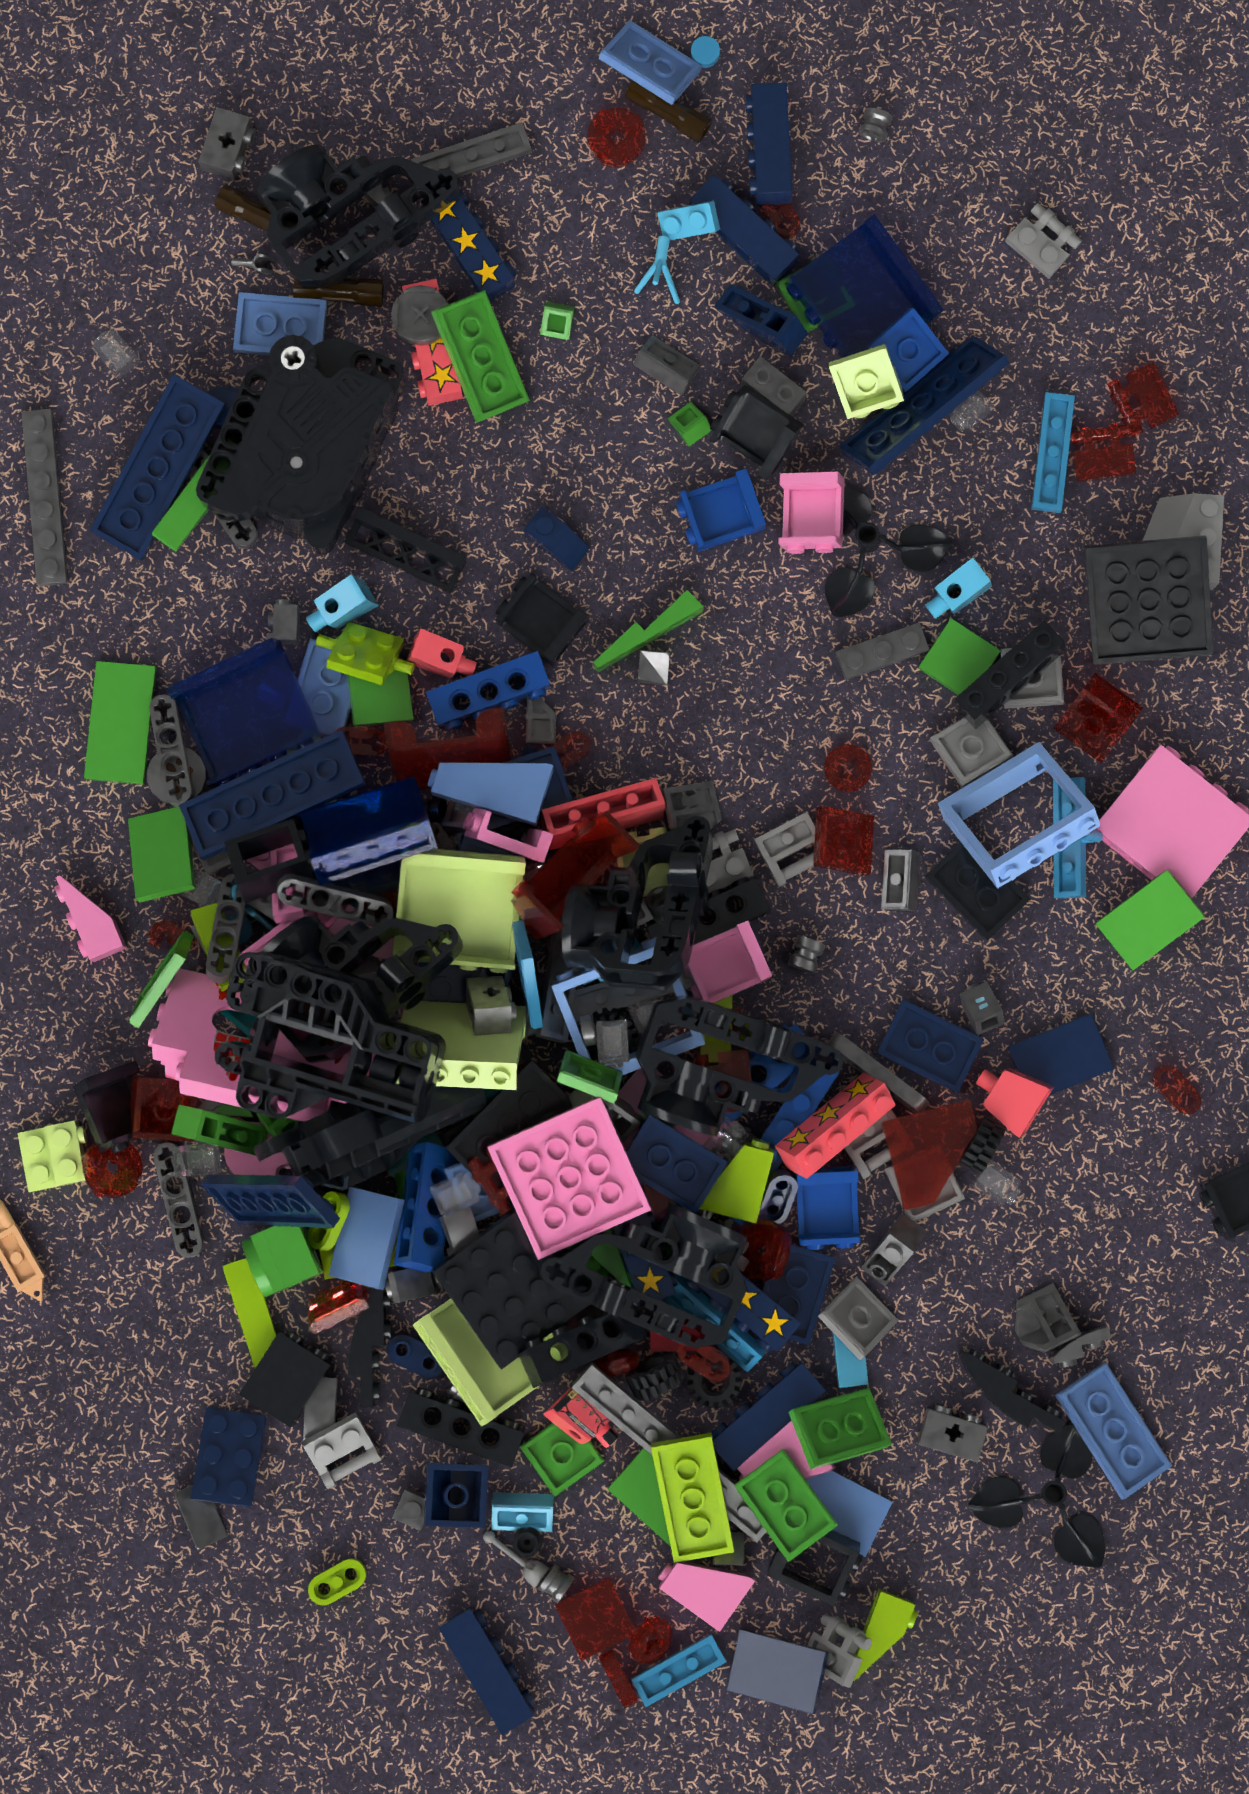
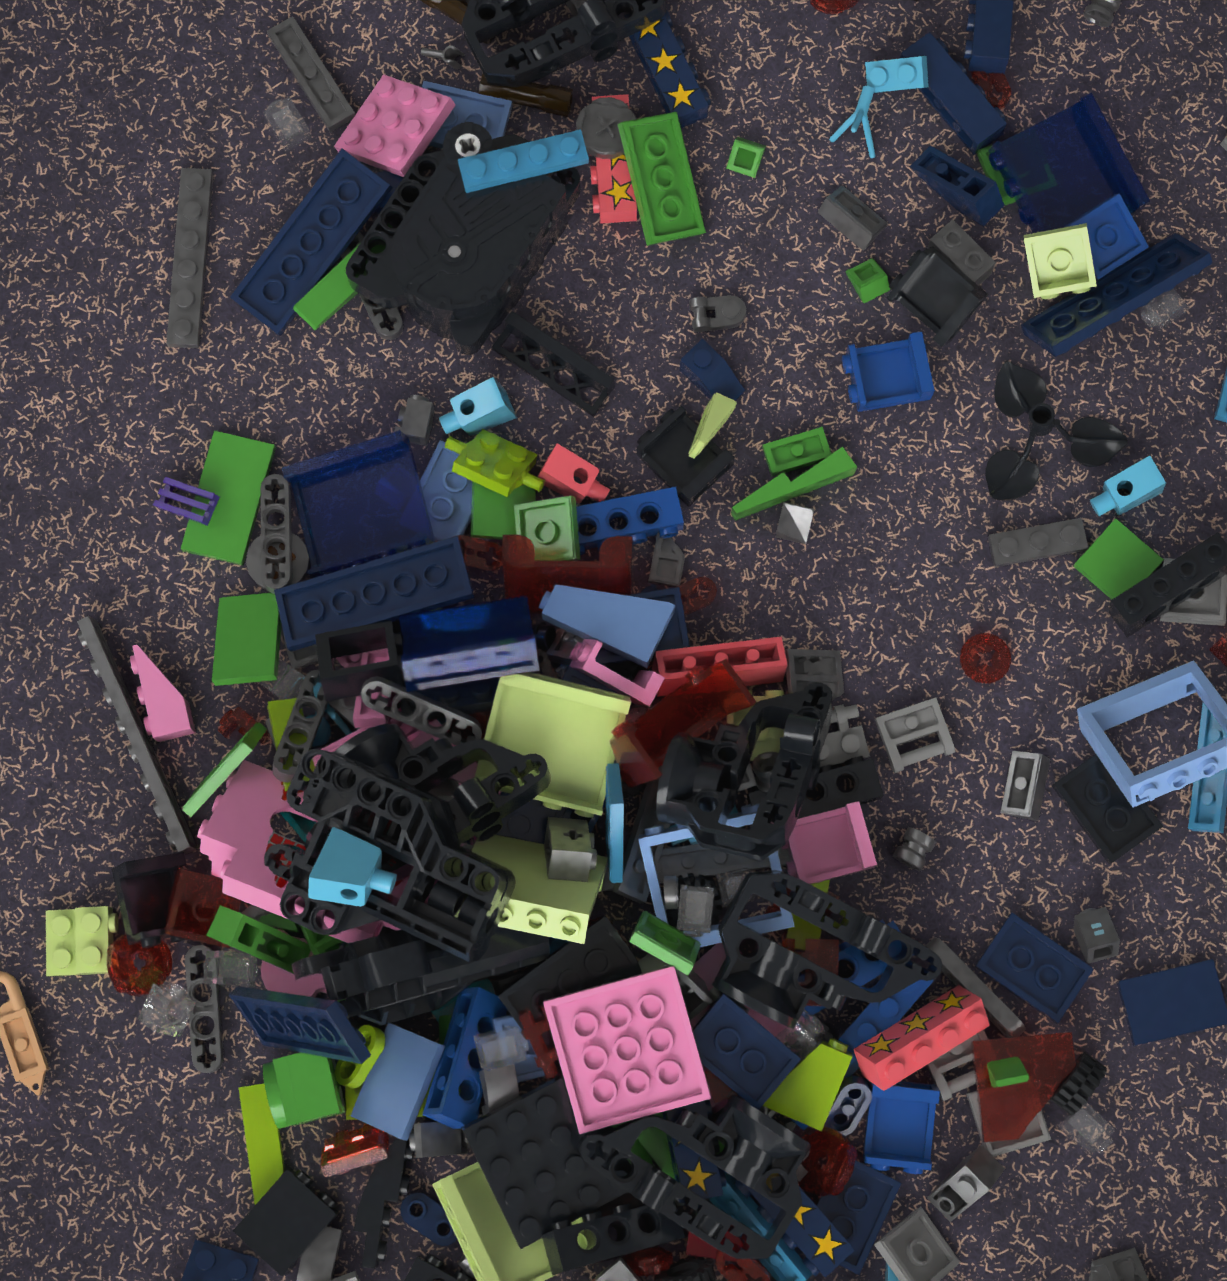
camera: 10 degrees right, 5 degrees down
(61, 728) = (167, 494): none -> dark purple tile
(78, 968) = (141, 747): none -> flat silver plate
(130, 301) = (311, 74): none -> flat silver plate
(145, 1205) = (167, 1009): none -> clear brick
(218, 341) = (395, 125): none -> bright pink plate
(294, 1058) = (348, 871): none -> medium azure torso
(347, 366) = (523, 161): none -> dark azure plate
(426, 708) = (550, 527): none -> bright green tile
(562, 581) = (713, 418): none -> yellowish green slope
(563, 474) = (729, 312): none -> flat silver plate
(646, 599) = (796, 451): none -> bright green plate
(812, 511) = (984, 386): bright pink panel -> none
(843, 841) = (971, 733): clear red plate -> none
(915, 1144) = (1007, 1072): none -> bright green slope
(970, 751) = (1118, 660): light grey plate -> none
(1014, 1098) = (1118, 1038): coral torso -> none

